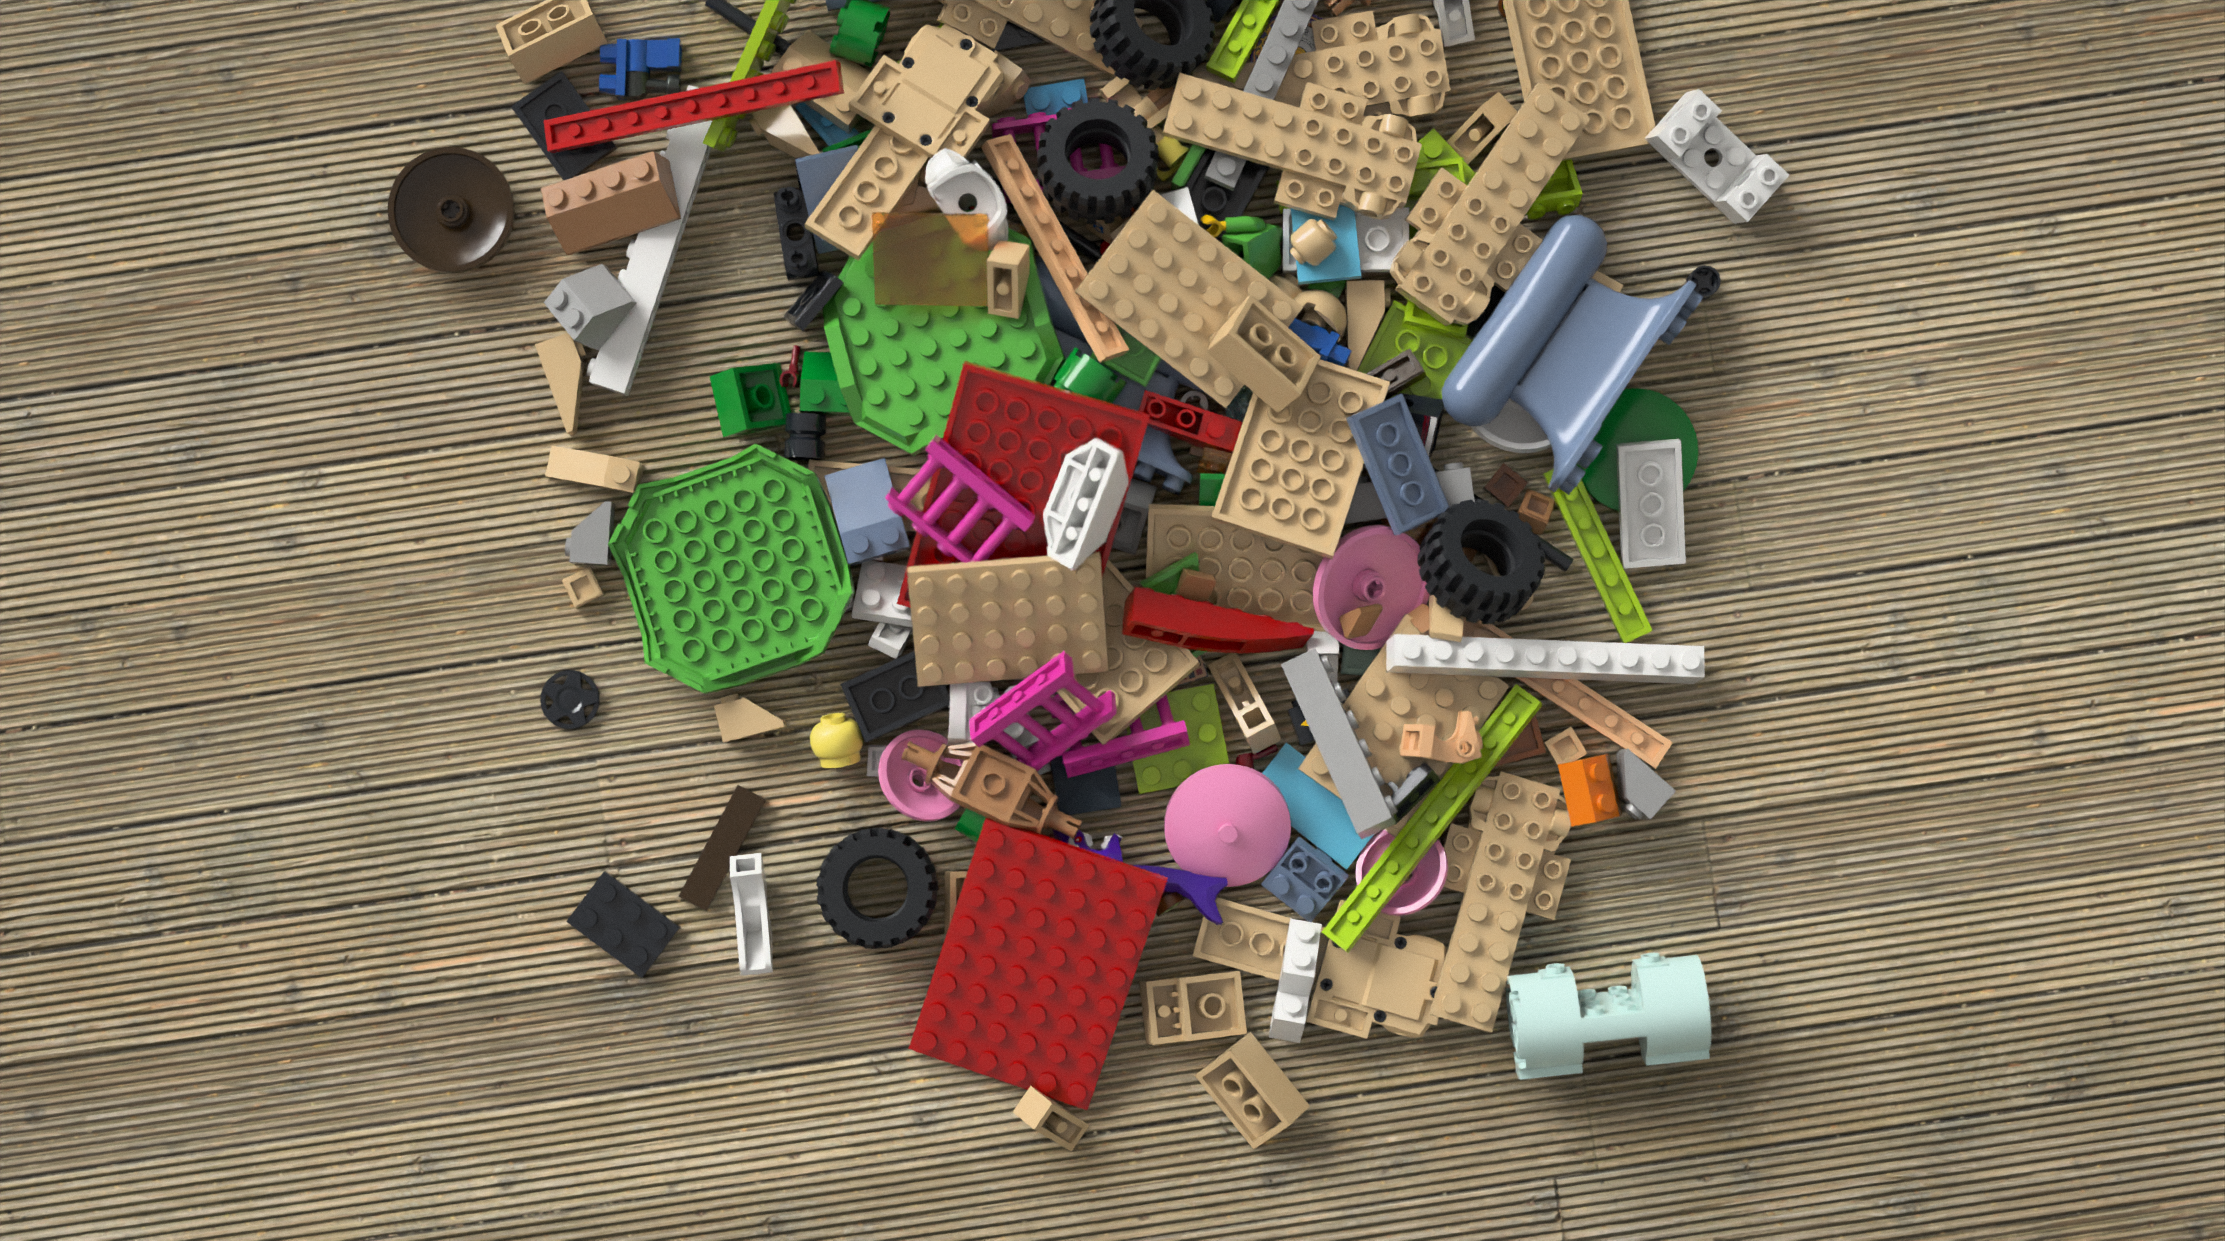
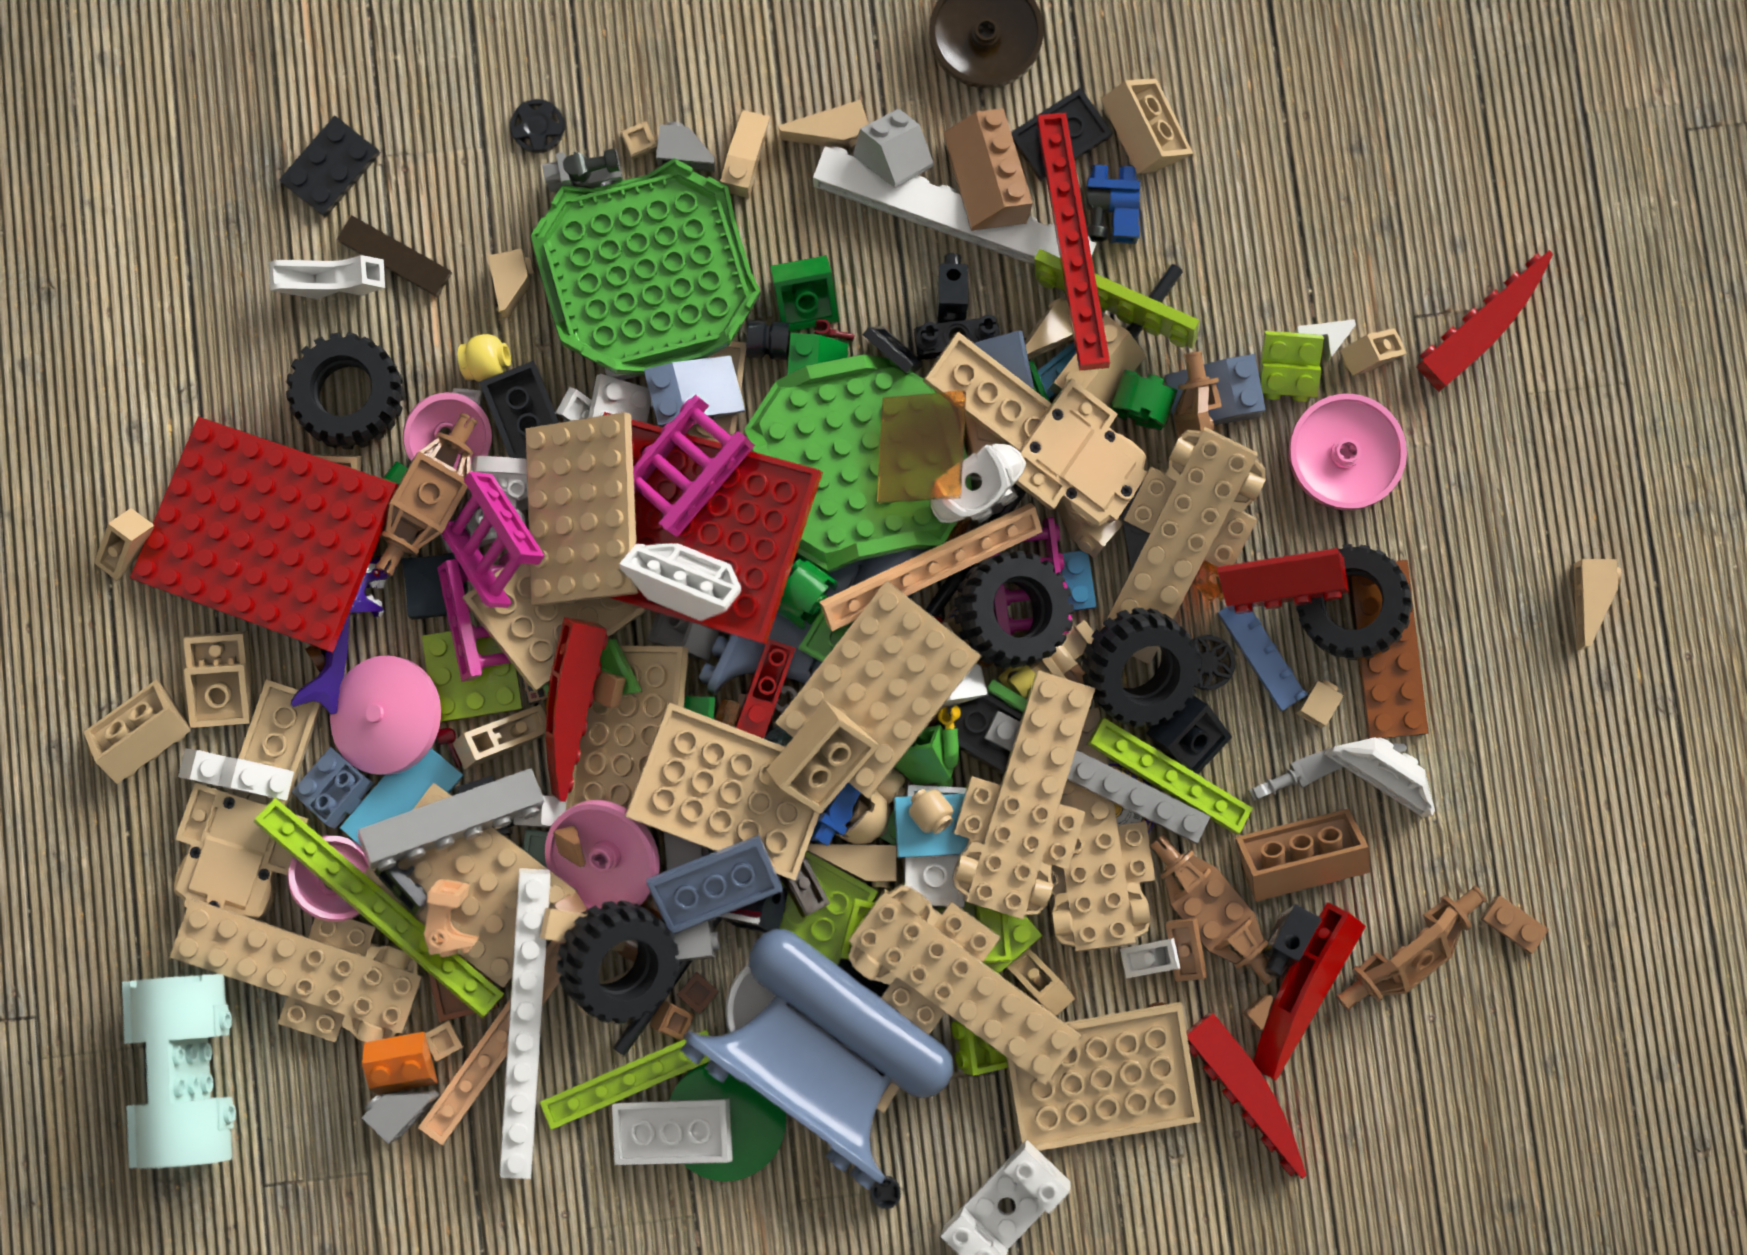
camera: 85 degrees right, 5 degrees down
(626, 642) = (583, 172): none -> hips
(755, 239) = (952, 289): none -> black torso
(1007, 278) = (901, 517): tan slope -> none

